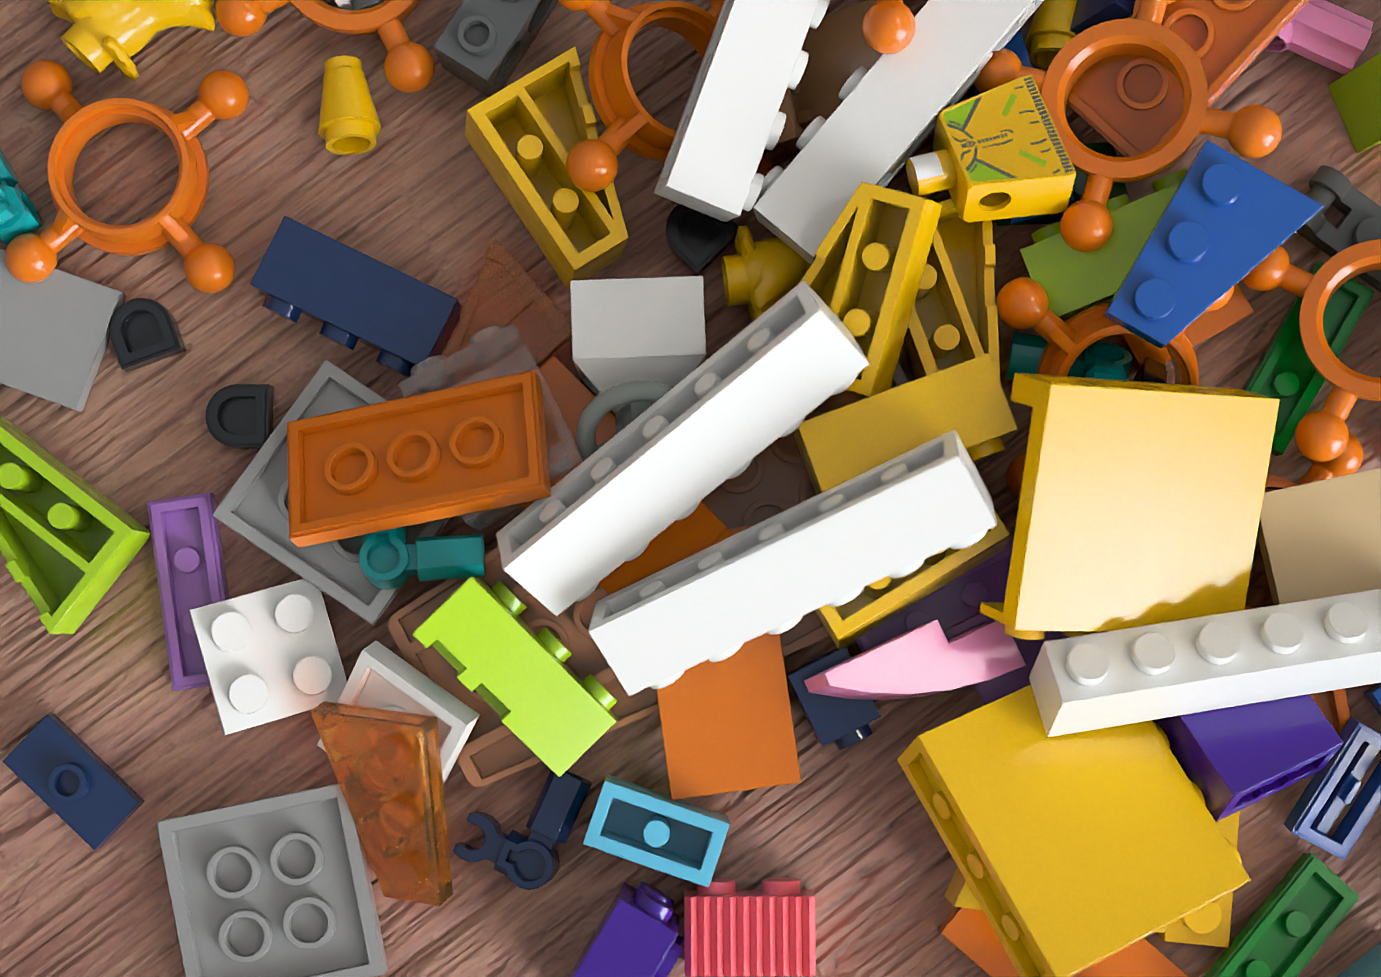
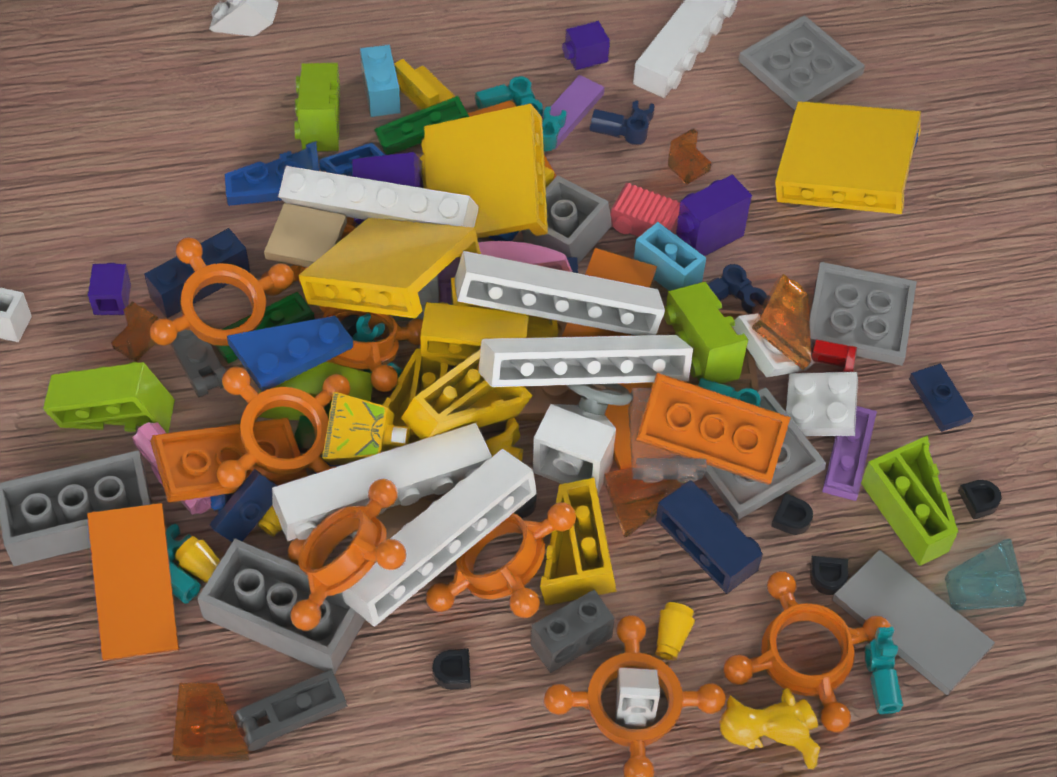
camera: 155 degrees left, 30 degrees down
(280, 770) = (834, 354): none -> red tile
(876, 832) = (573, 219): none -> light grey brick

